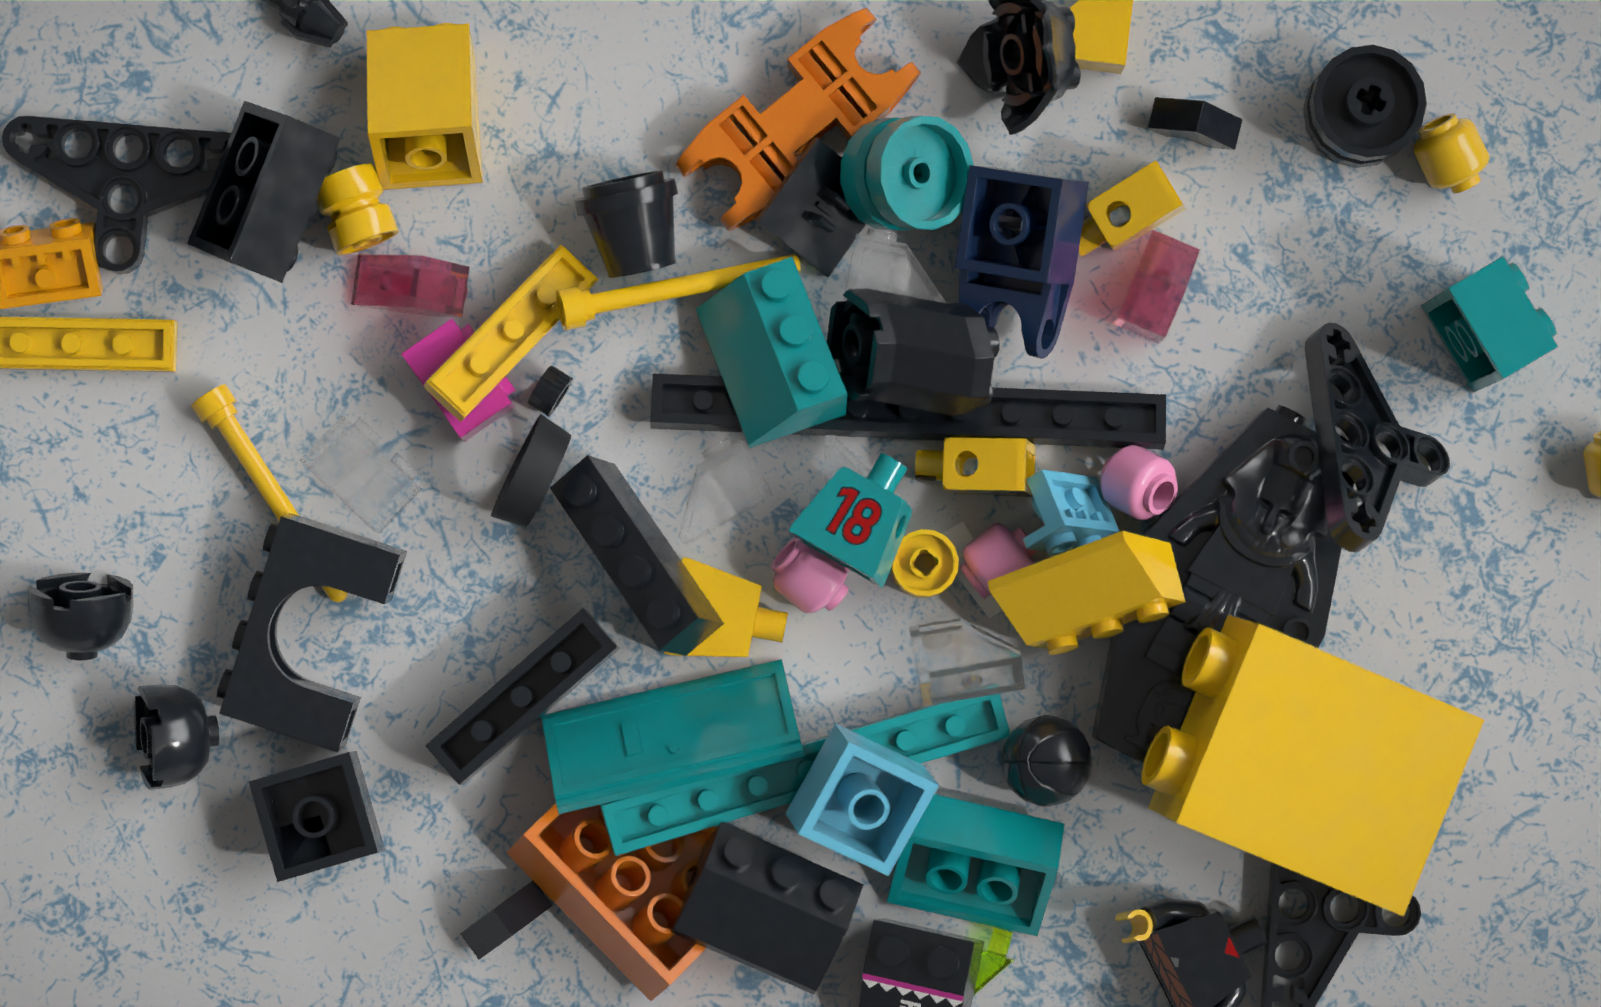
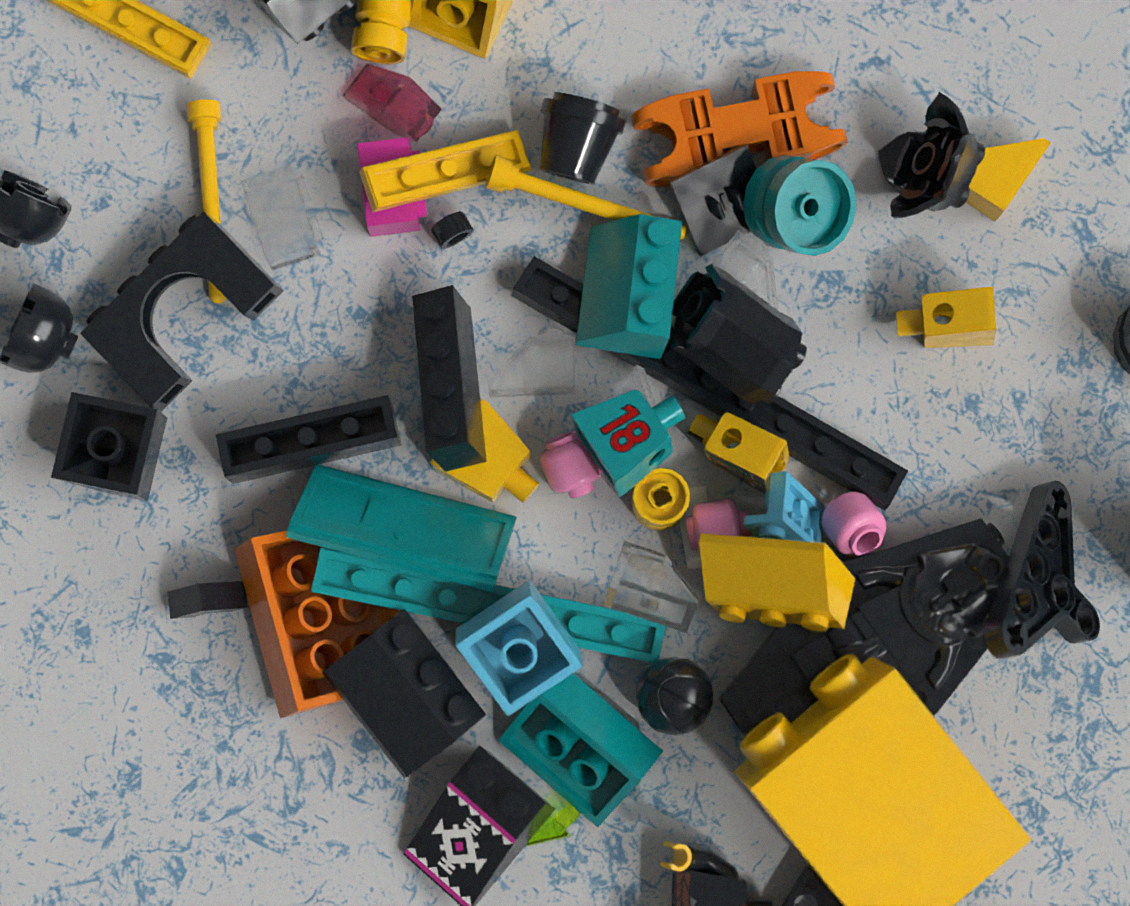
camera: 30 degrees right, 5 degrees down
(531, 473) = (404, 278): black tyre -> none
(1019, 266) = (856, 302): dark blue brick -> none
(1157, 287) = (940, 388): clear pink slope -> none
(1195, 121) = (1035, 280): black piece -> none

